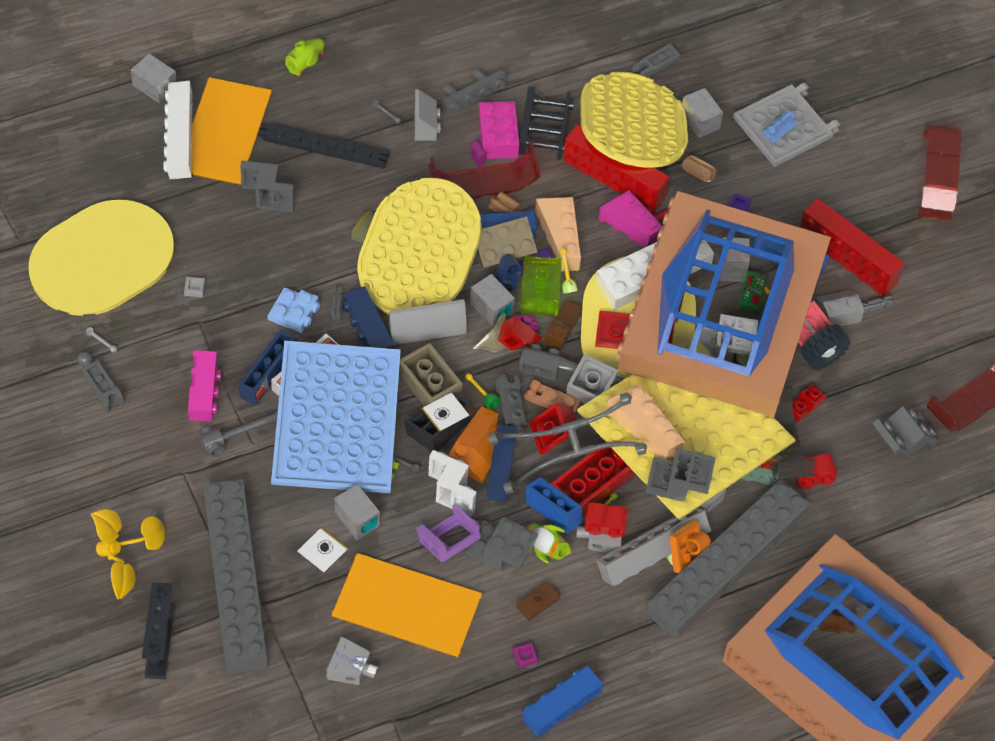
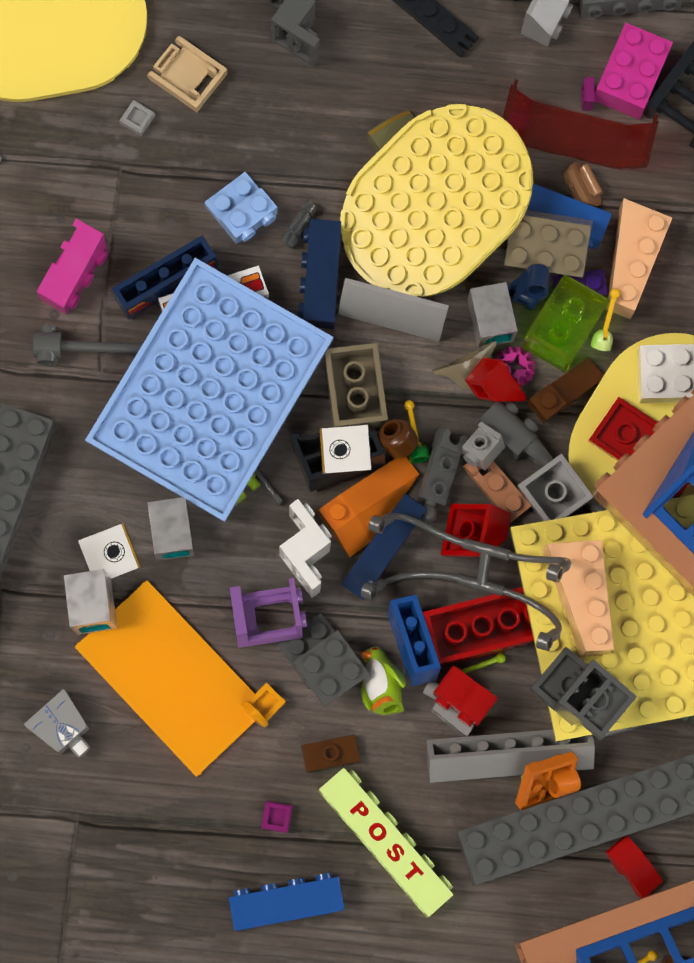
camera: 25 degrees right, 20 degrees up
(209, 247) = (184, 72): none -> tan container
(329, 577) = (90, 601): none -> flat silver piece
(475, 392) = (398, 438): none -> reddish brown head
(478, 591) = (263, 705): none -> light orange tile
(531, 375) = (483, 455): none -> light grey brick
(605, 635) = (385, 842): none -> yellowish green brick
(767, 574) = (634, 866): none -> red slope

